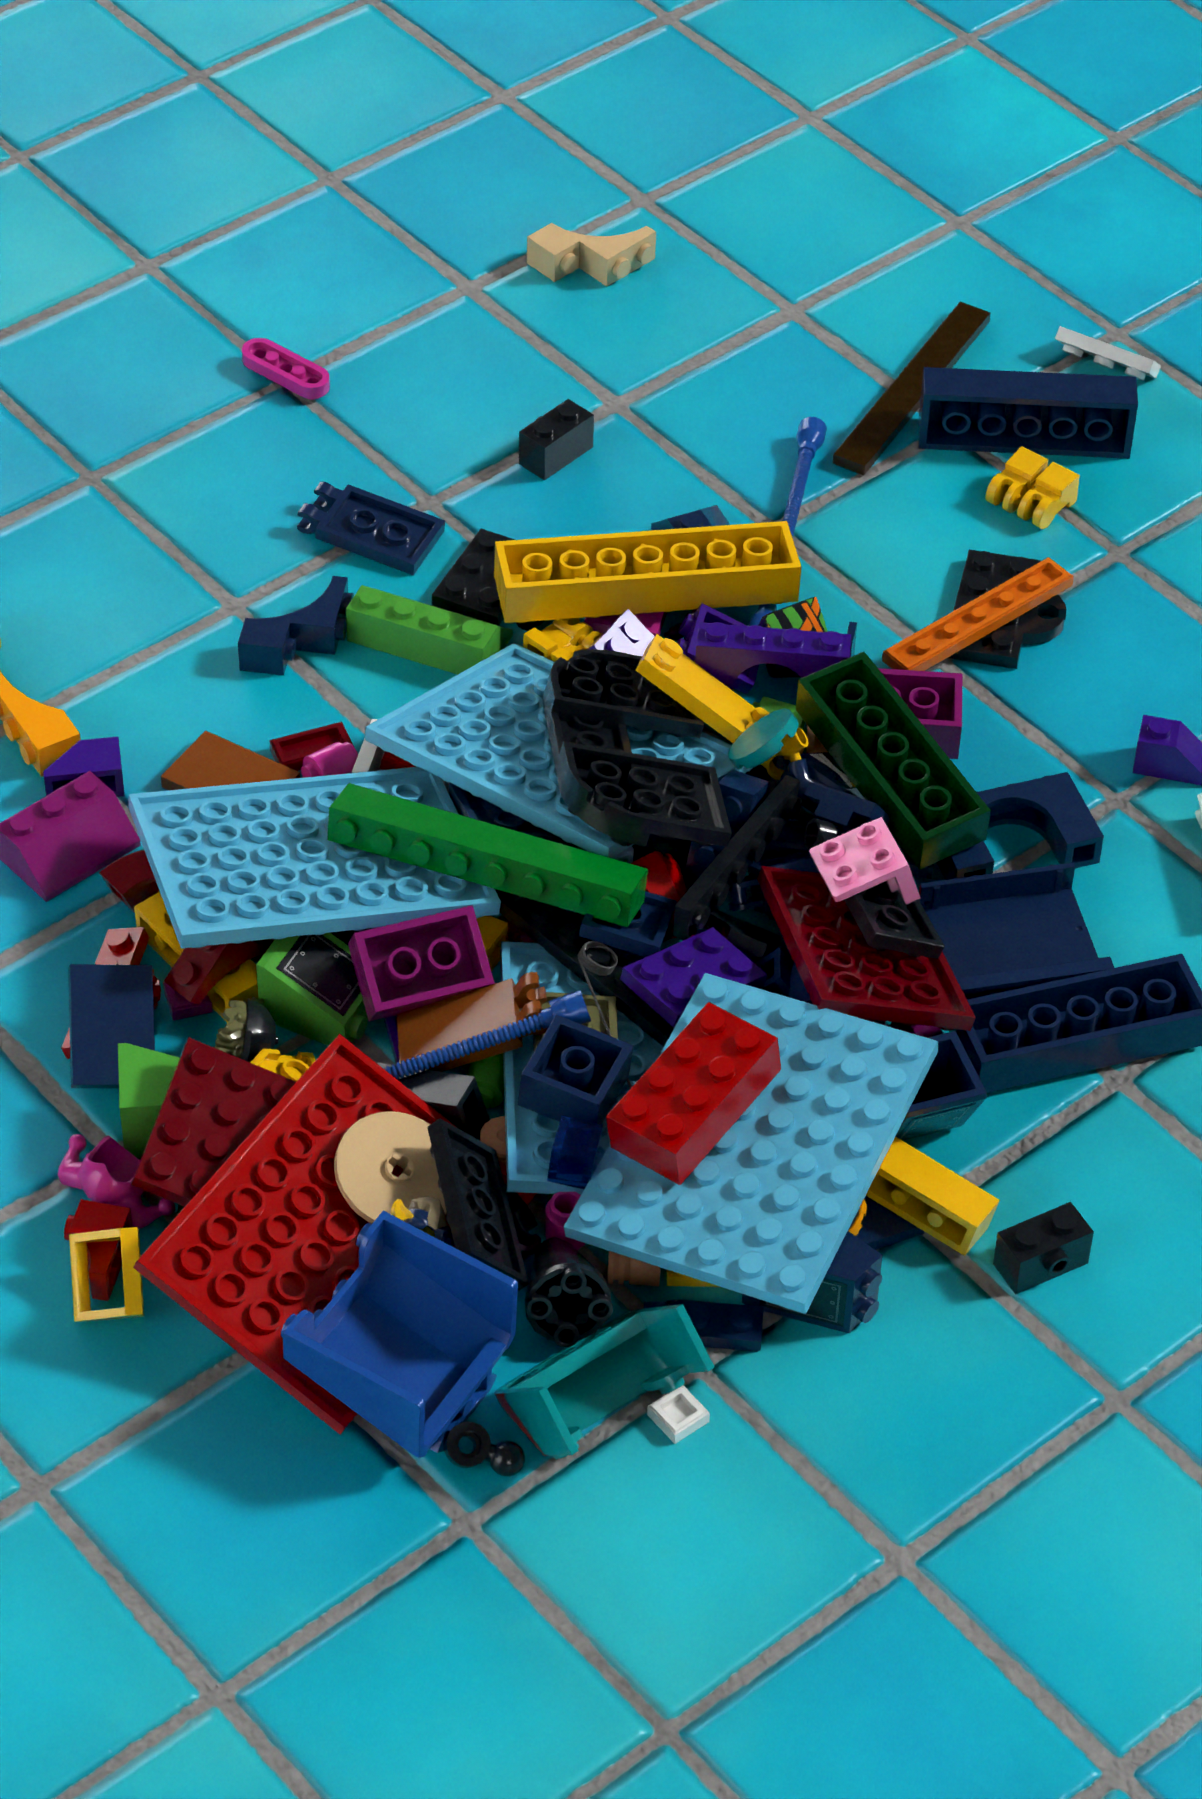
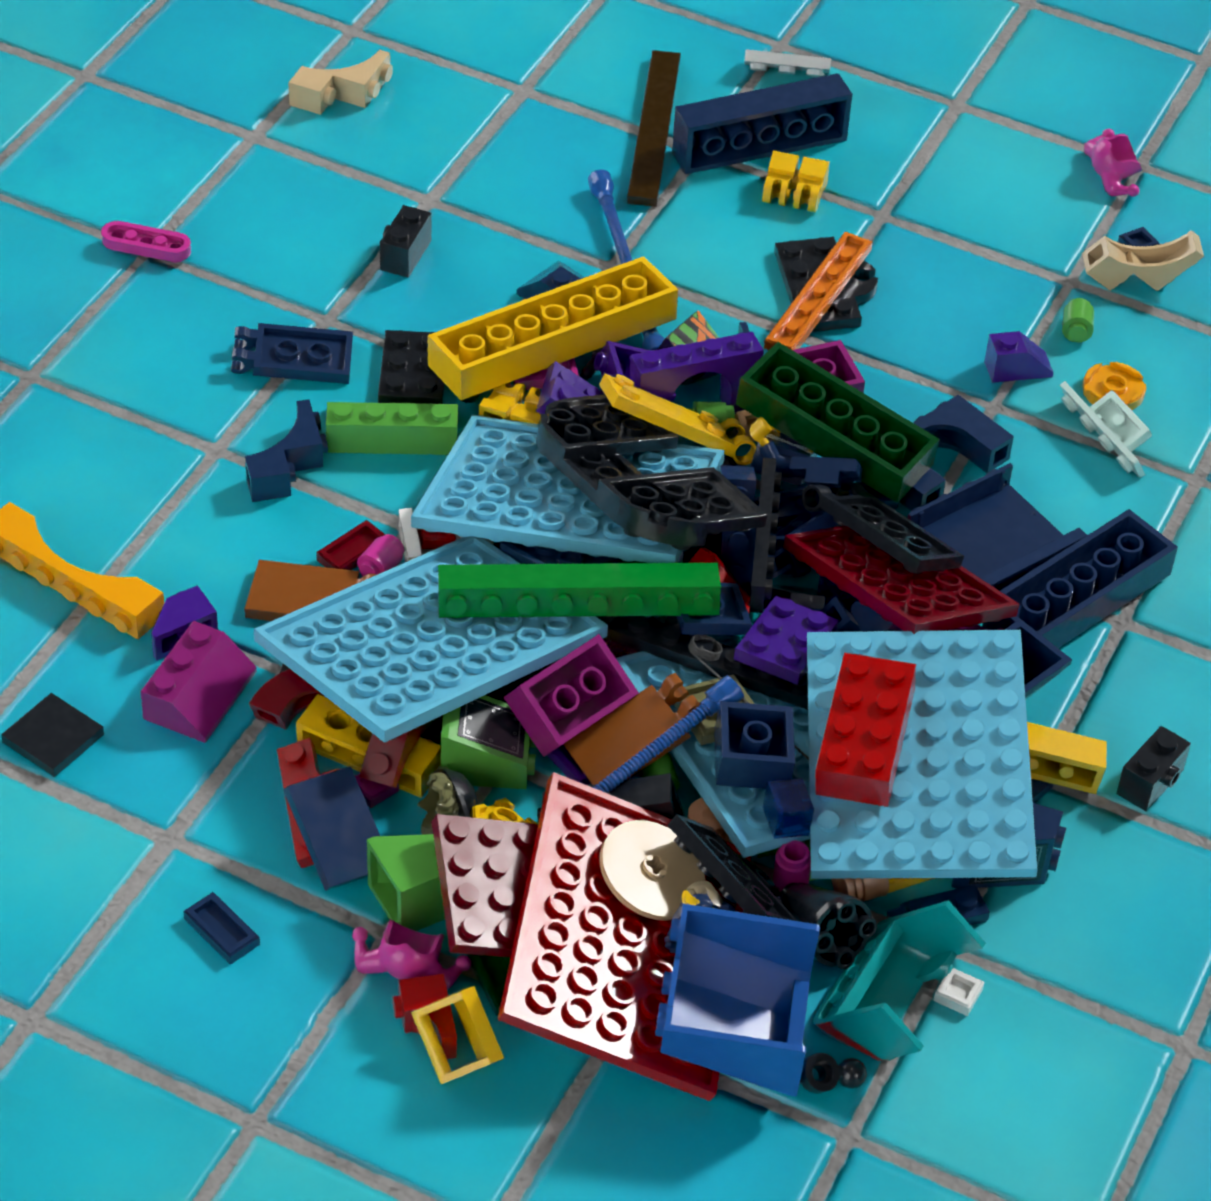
camera: 25 degrees left, 0 degrees up
(762, 739) = (736, 433): teal tile -> none
(863, 861) = (874, 507): bright pink bracket -> none

